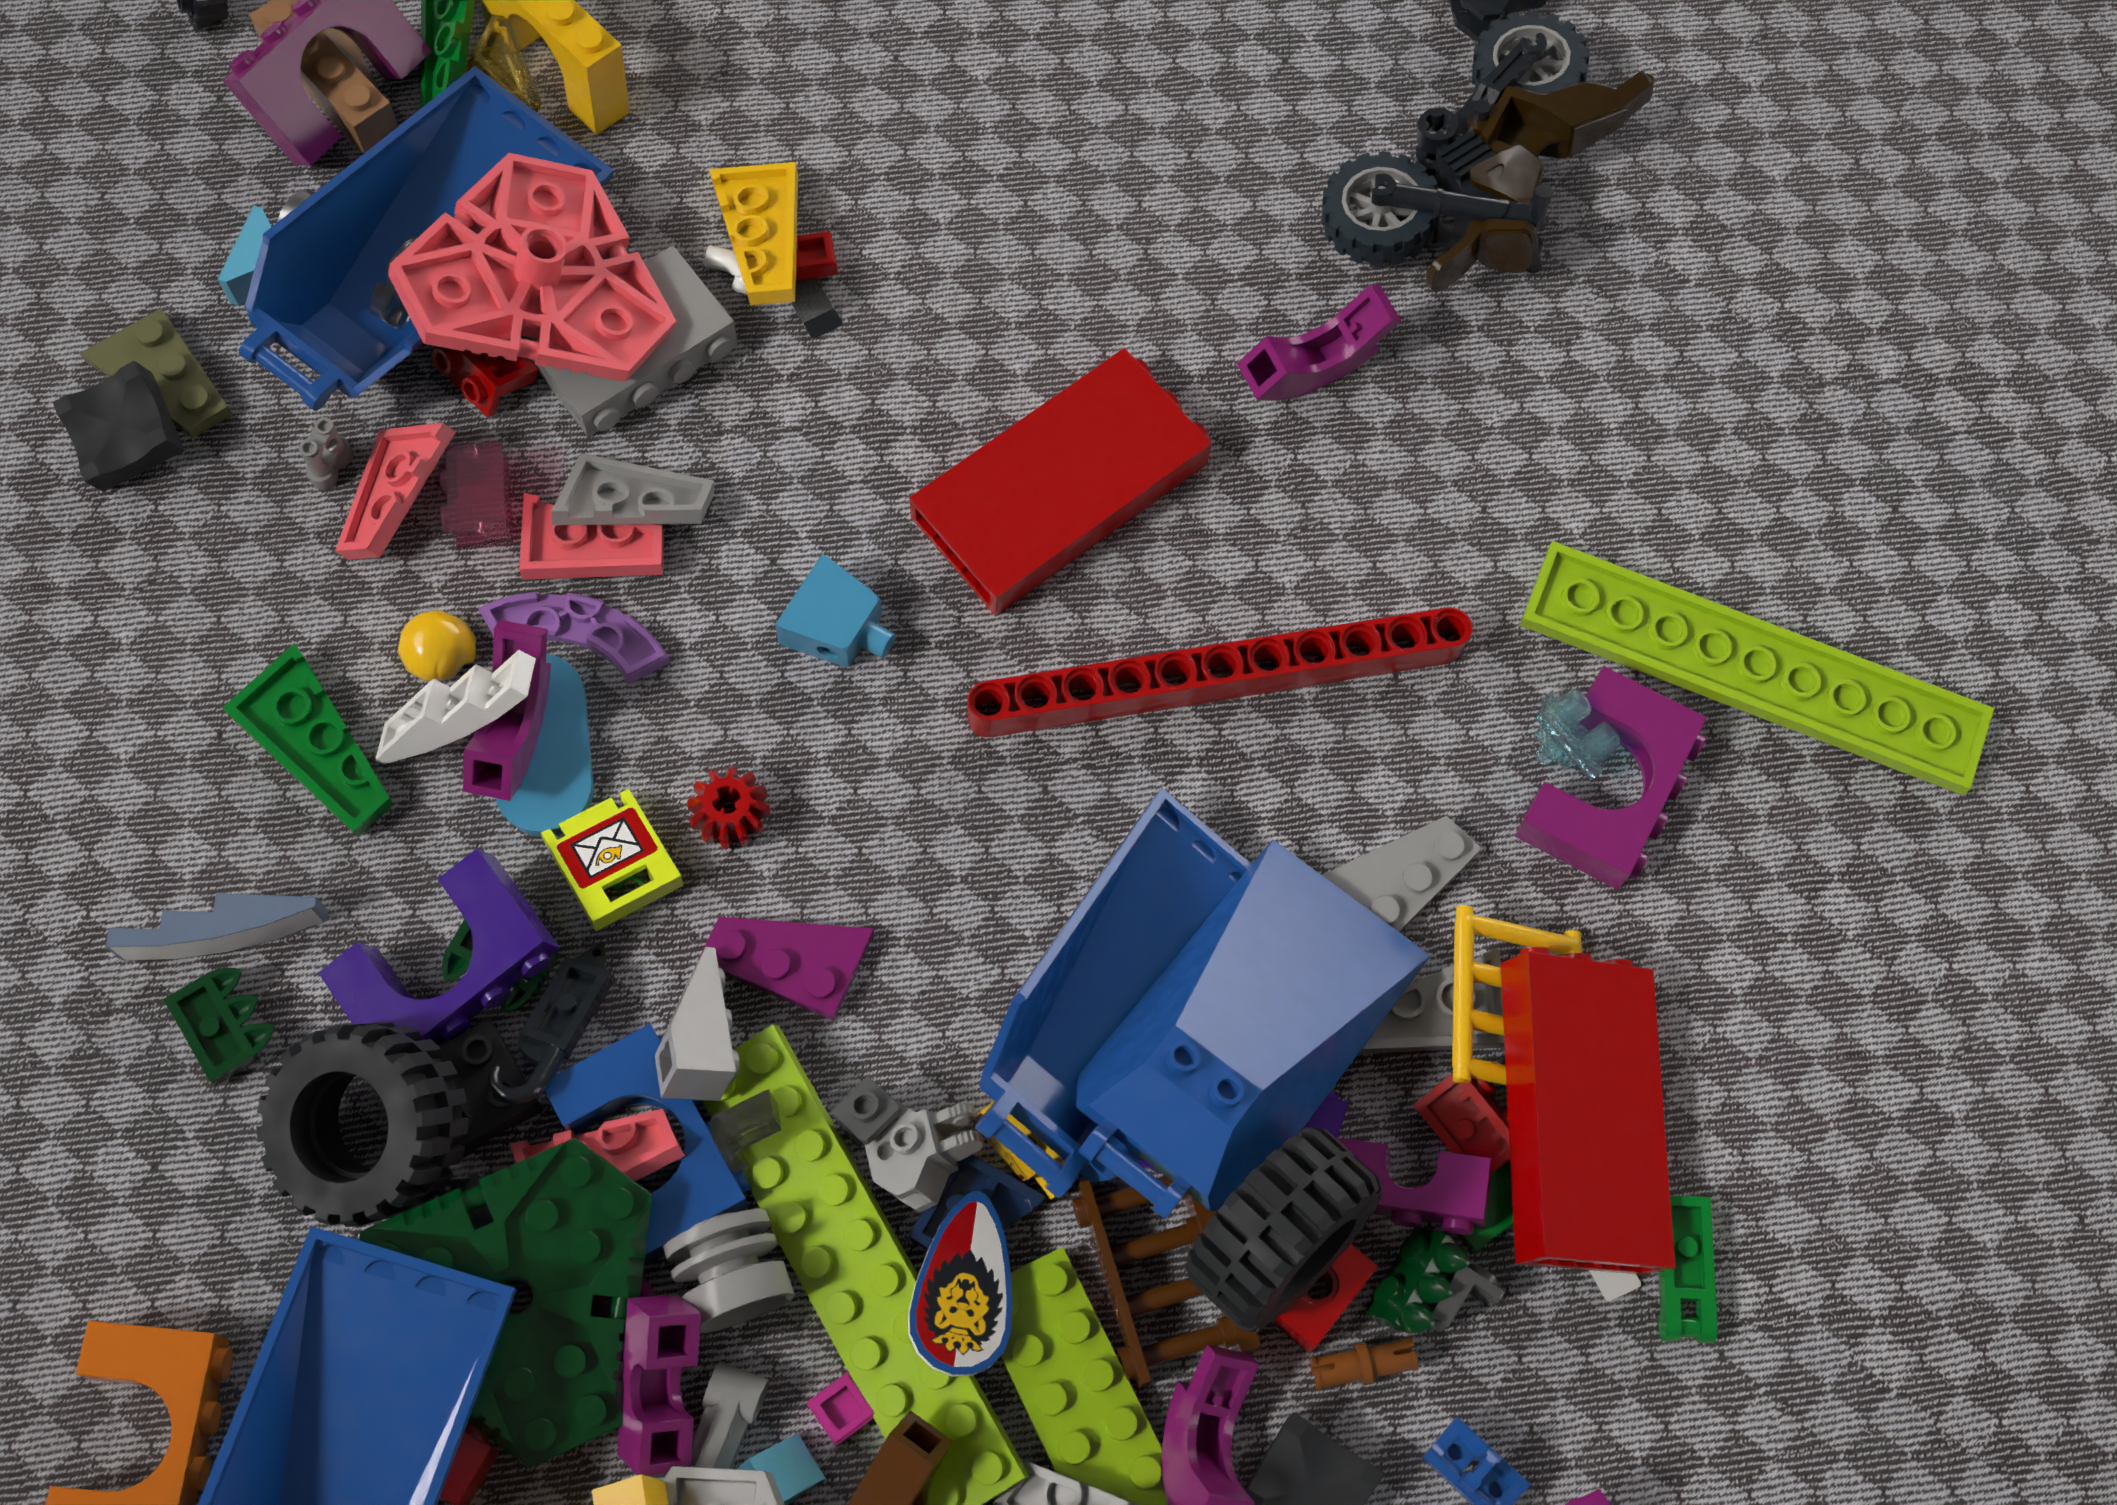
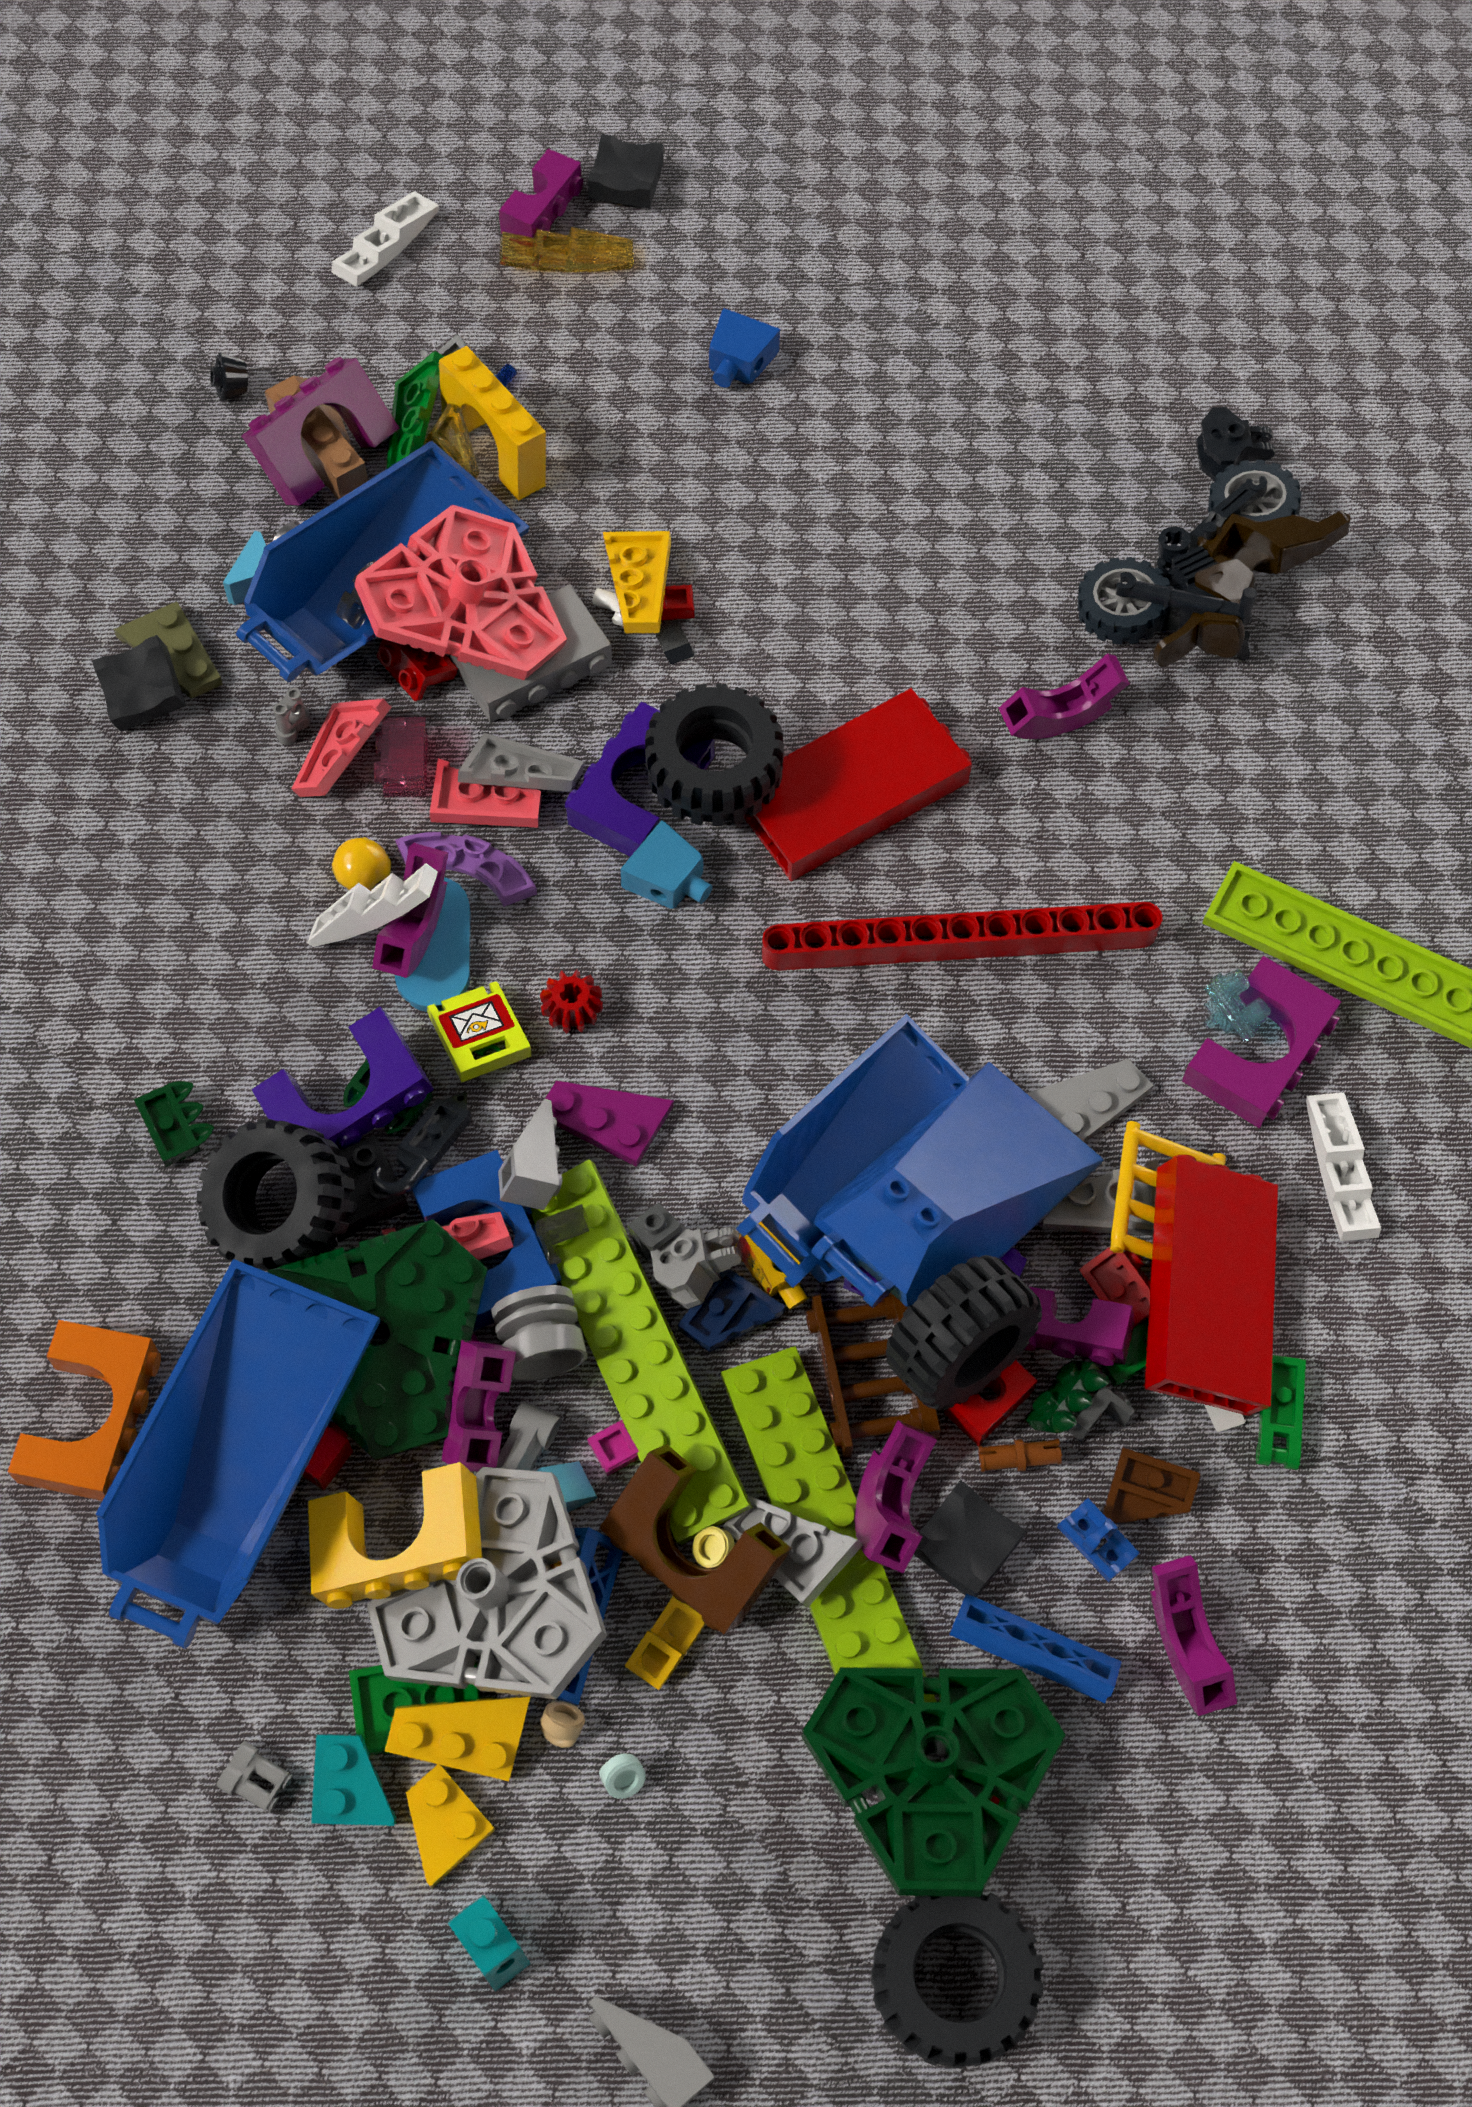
camera: 10 degrees right, 5 degrees down
(233, 925) = (192, 1051): sand blue slope -> none
(307, 737) = (257, 921): green wing -> none
(788, 443) = (597, 805): none -> dark purple arch
(875, 410) = (714, 715): none -> black tyre
(963, 1292) = (715, 1366): shield -> none
(1530, 1391) = (1148, 1488): none -> reddish brown wing
(1726, 932) = (1342, 1167): none -> white slope

